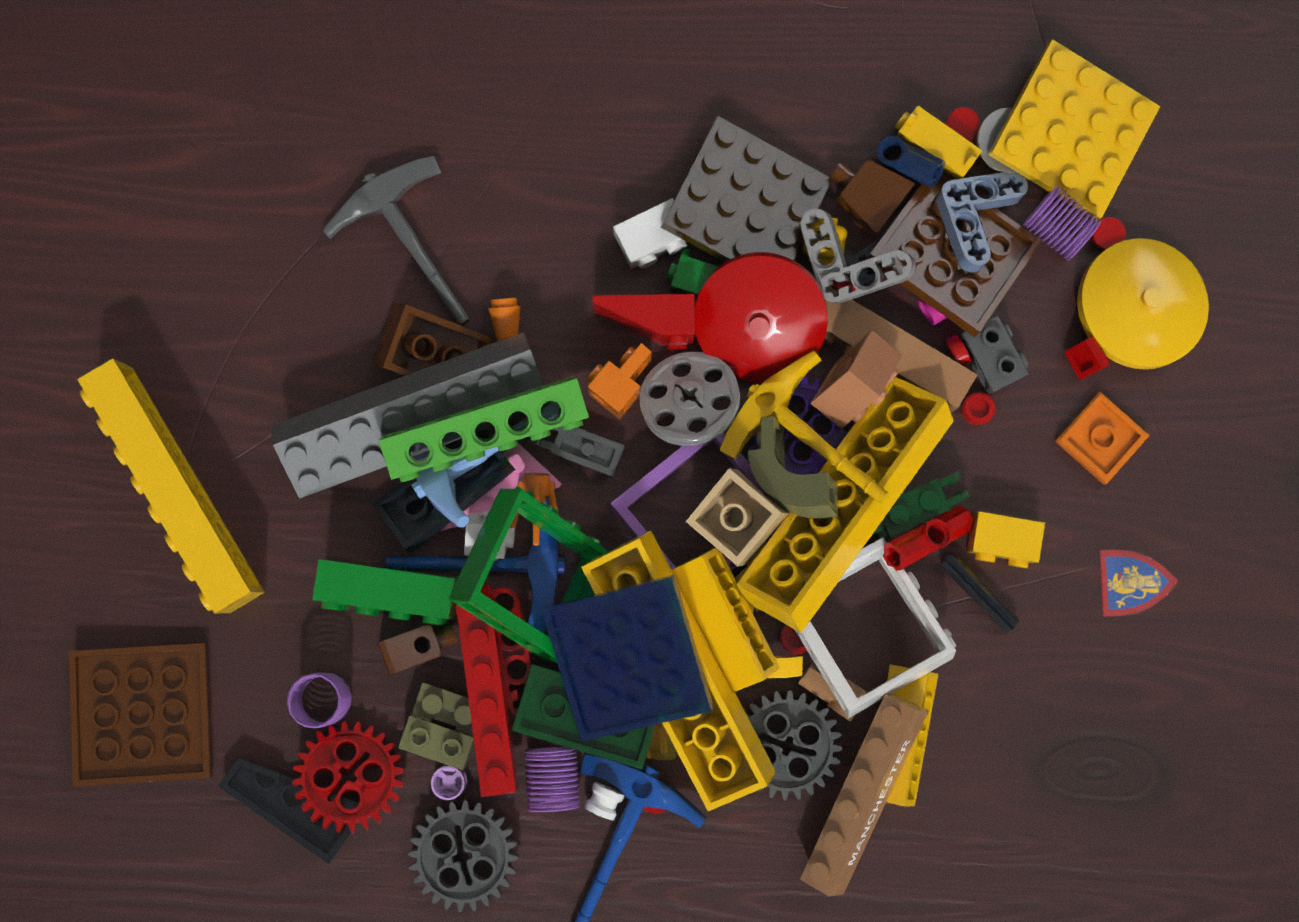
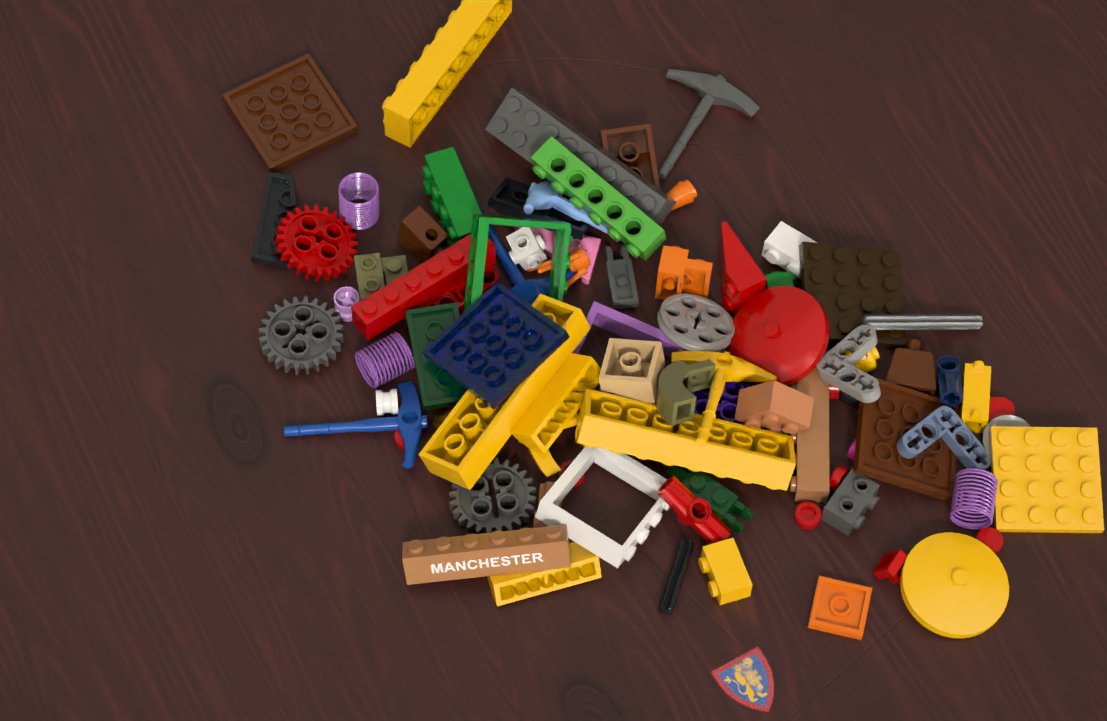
camera: 65 degrees right, 25 degrees down
(820, 145) = (923, 321): none -> axle

